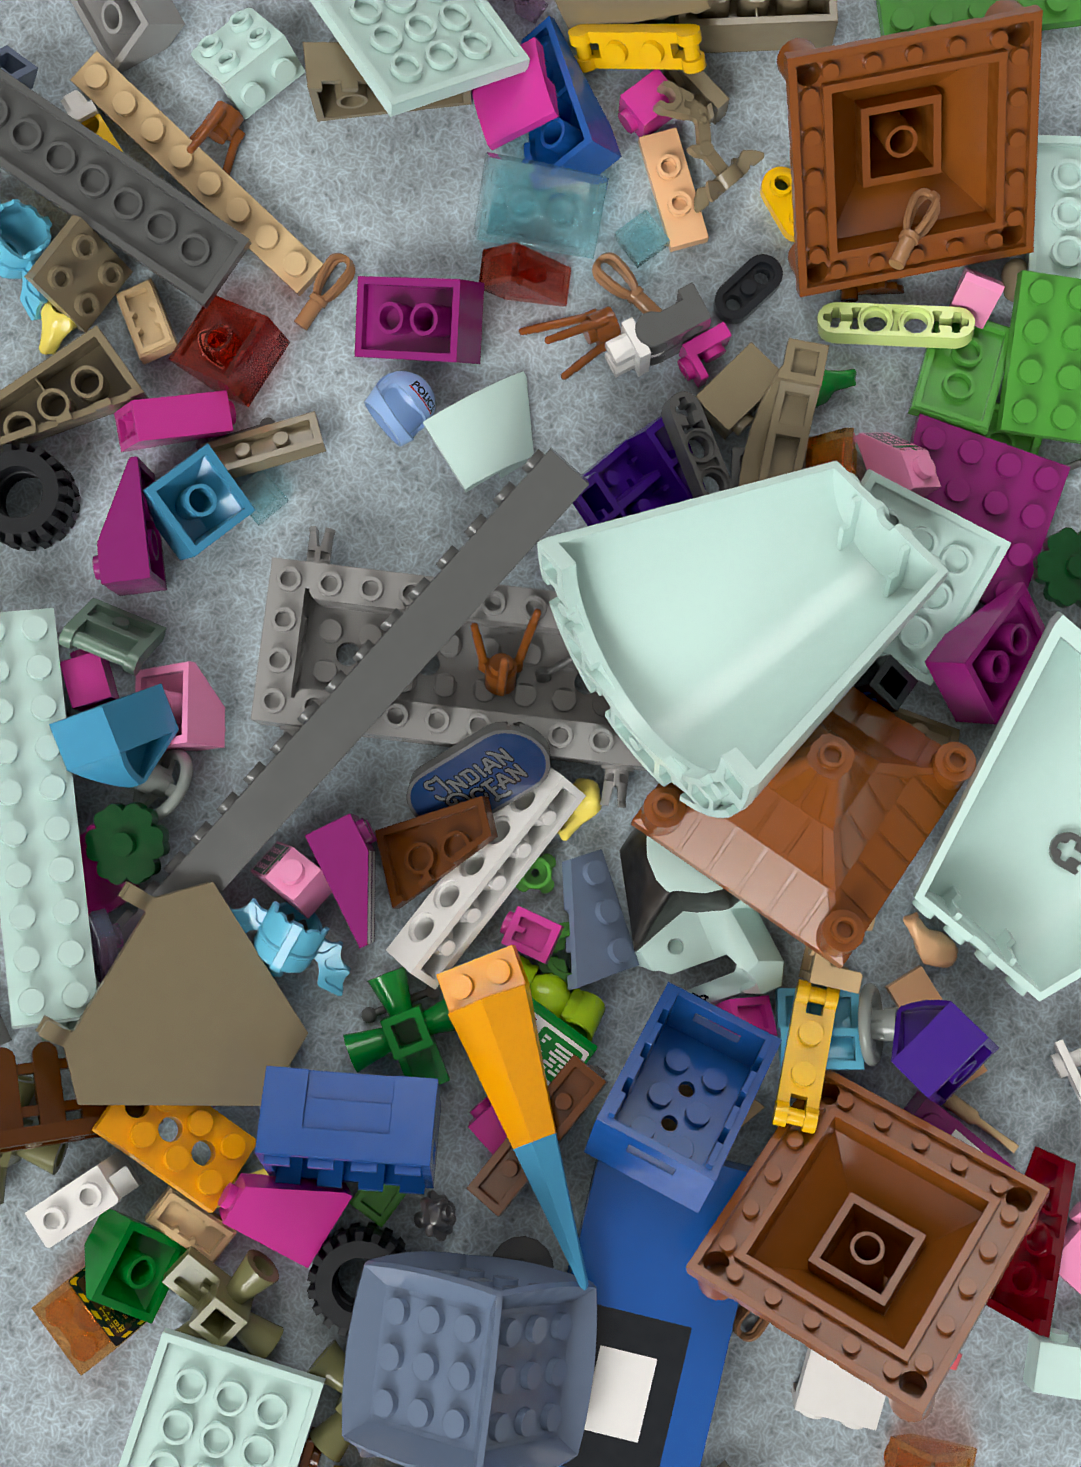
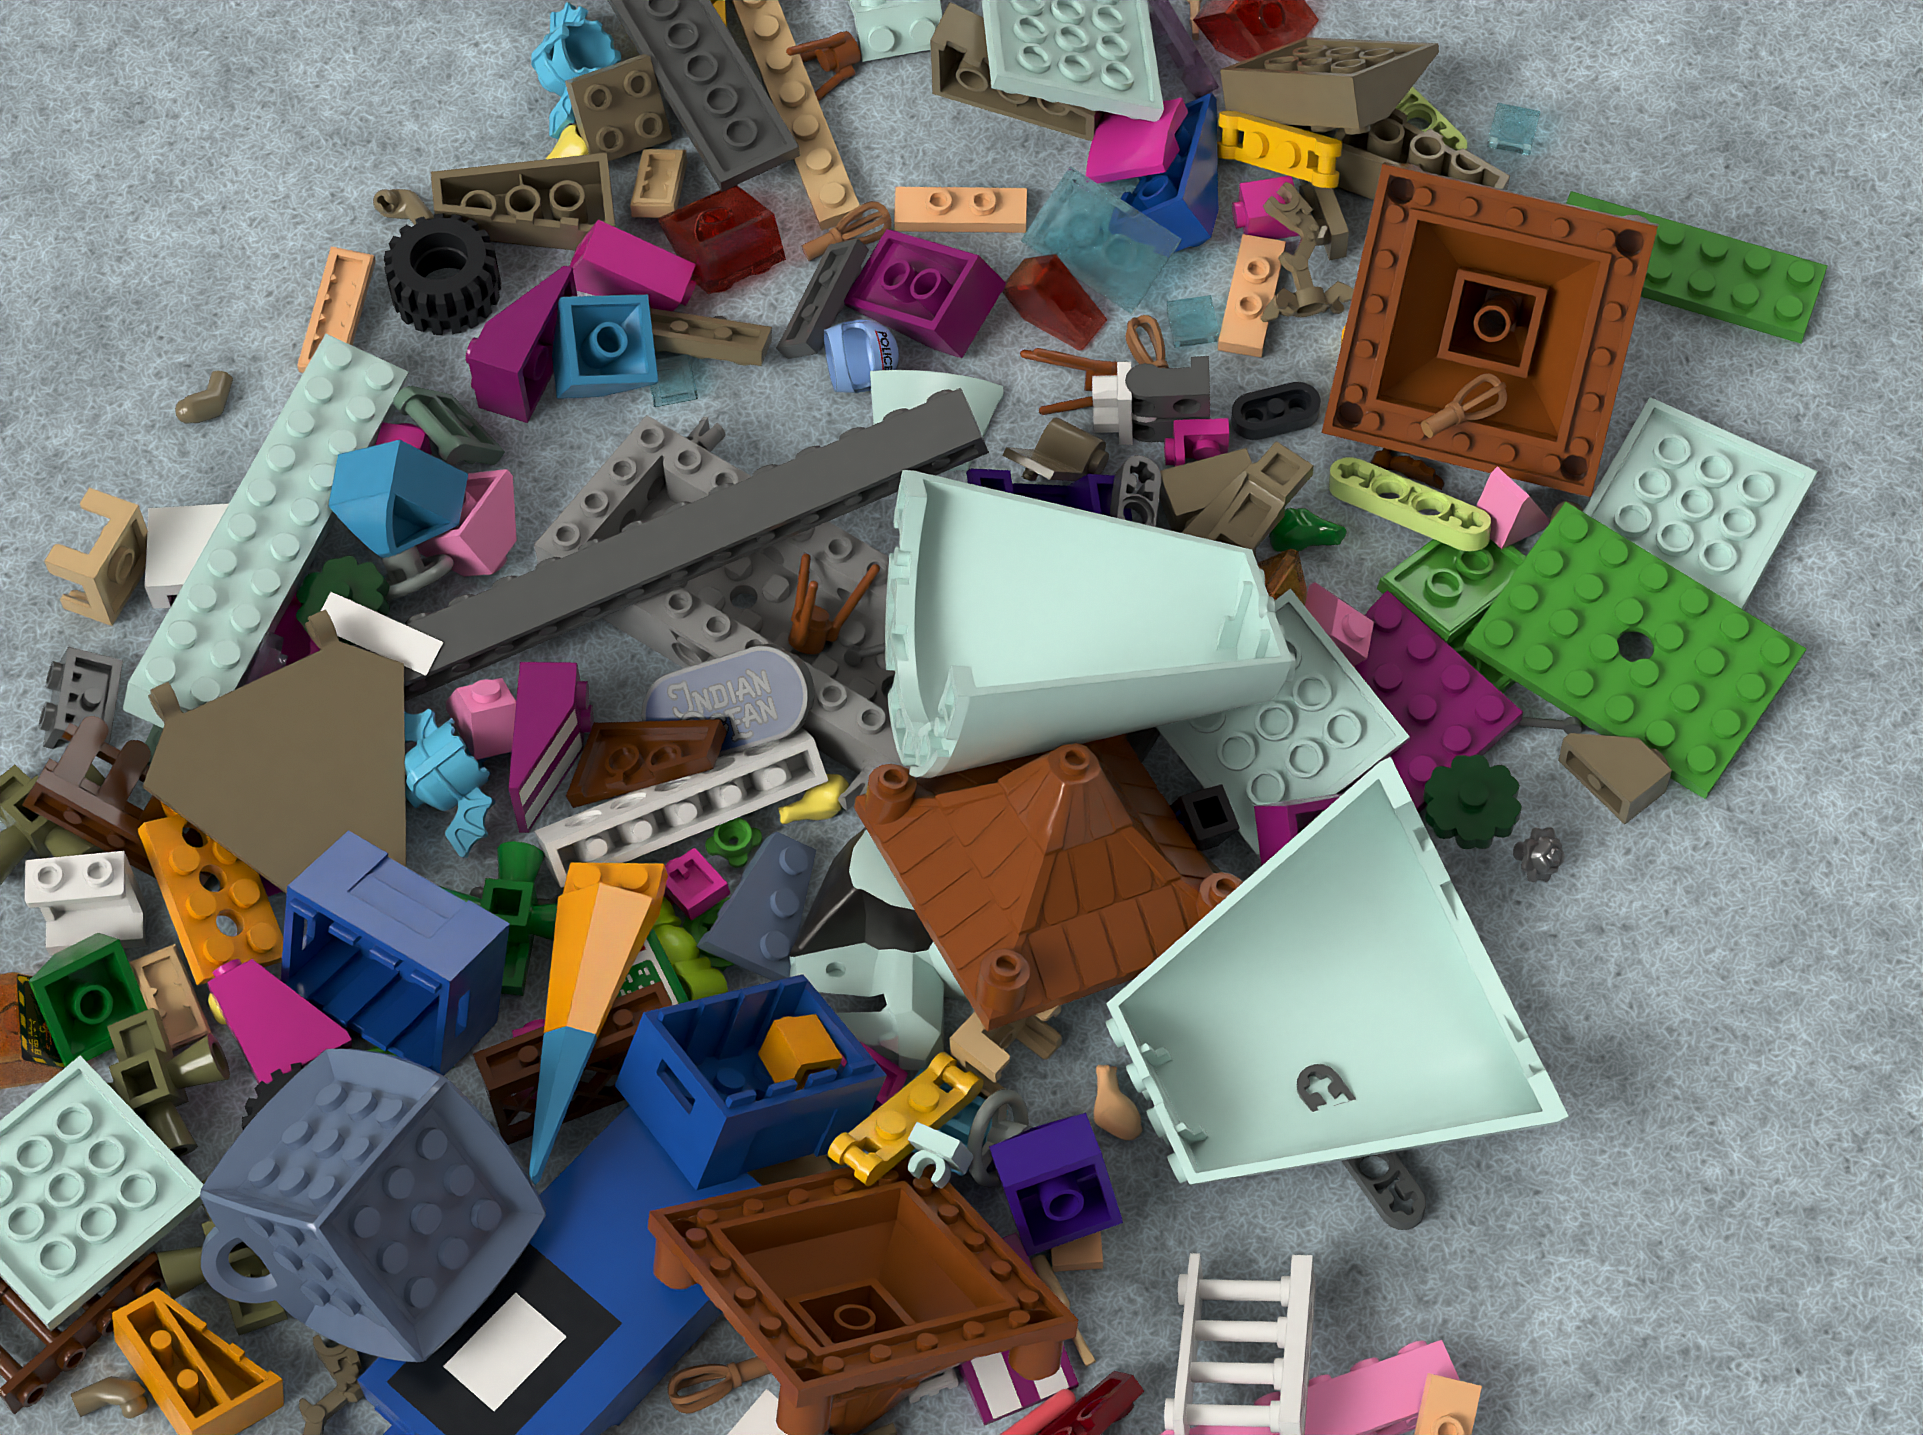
camera: 30 degrees right, 25 degrees down
(176, 864) = (382, 634): none -> white sticker
(341, 364) = (823, 298): none -> dark grey plate
(402, 223) = (960, 209): none -> light nougat plate
(609, 423) = (1061, 453): none -> dark tan door
(700, 1046) = (798, 1048): none -> light orange brick
(848, 1072) = (937, 1149): none -> light aqua tile

